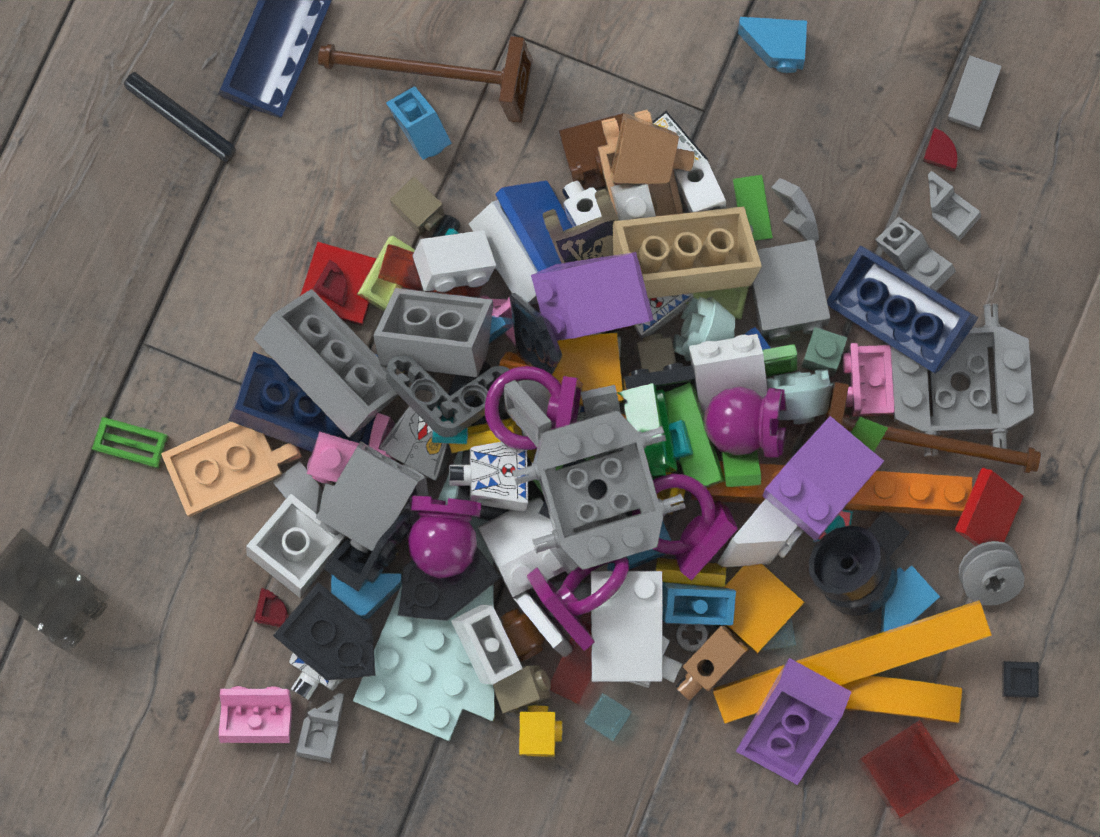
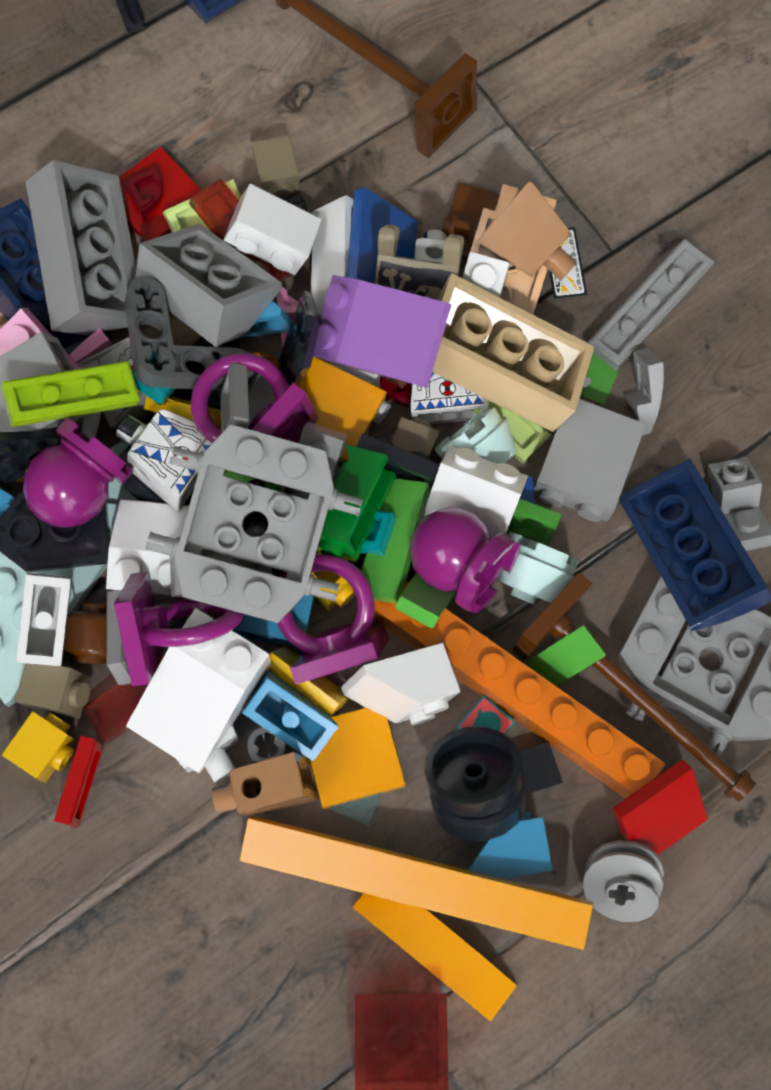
camera: 20 degrees right, 5 degrees down
(407, 477) = (69, 393): none -> lime tile
(419, 123) = (328, 100): dark azure slope -> none
(581, 739) = (79, 782): none -> red tile
(607, 717) = (124, 776): clear light blue tile -> none
(699, 188) = (562, 301): white torso -> none
(759, 139) = (650, 304): none -> light grey tile
(776, 41) = (724, 221): dark azure slope -> none
(794, 721) = (312, 906): medium lavender slope -> none
(822, 478) = (501, 661): medium lavender slope -> none
(824, 351) = (588, 541): sand green brick -> none
(870, 380) = (617, 599): bright pink bracket -> none
(1020, 679) = (586, 1016): black tile -> none

